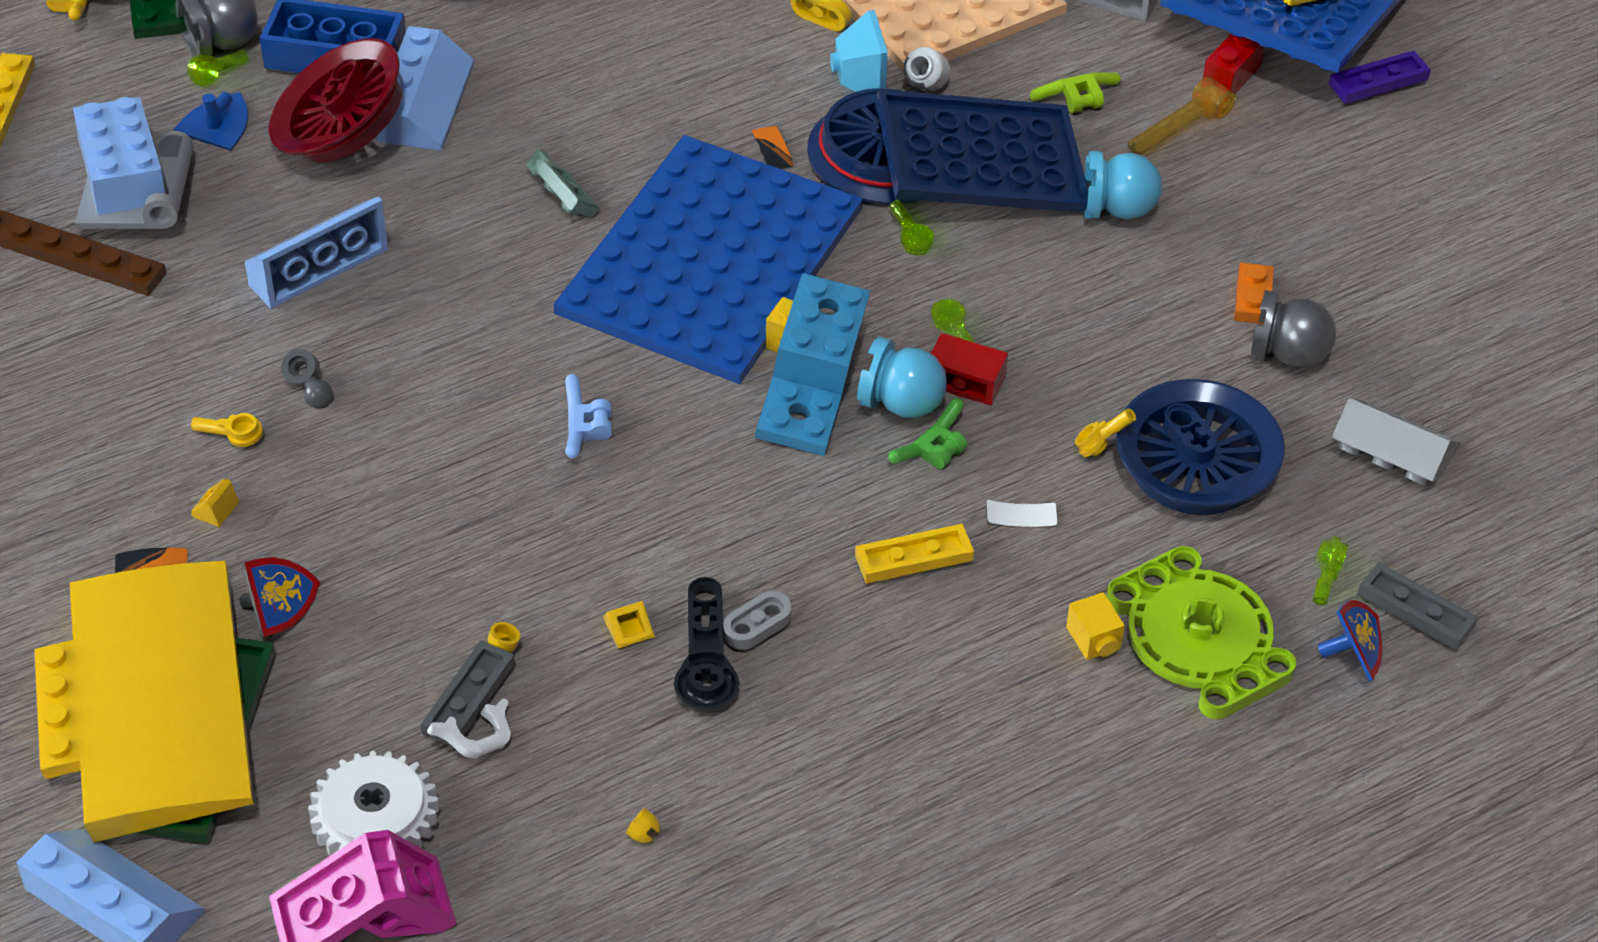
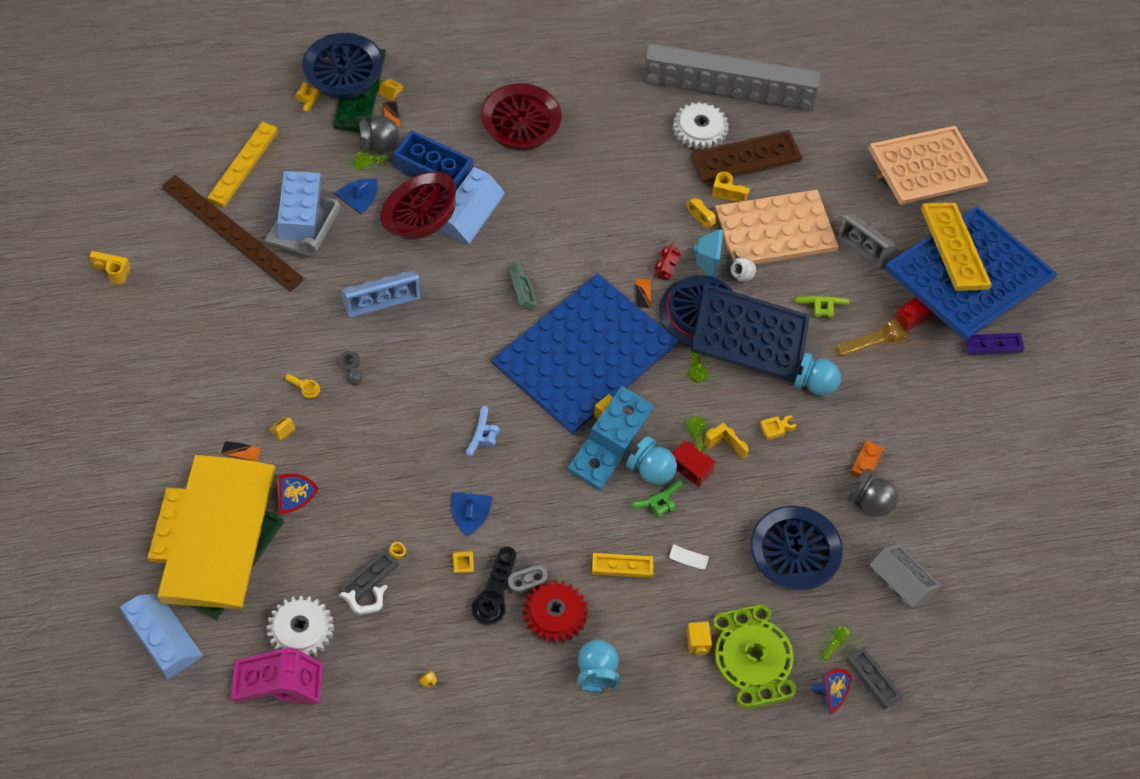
camera: 15 degrees right, 10 degrees up
(608, 544) = (470, 510): none -> blue shield
(794, 91) = (669, 256): none -> red hinge
(828, 655) = (555, 625): none -> red gear
(943, 715) = (598, 665): none -> medium azure tile
(1013, 315) = (722, 432): none -> yellow bracket
(1083, 283) = (774, 428): none -> yellow plate
(1094, 436) = (743, 525): yellow plate -> none

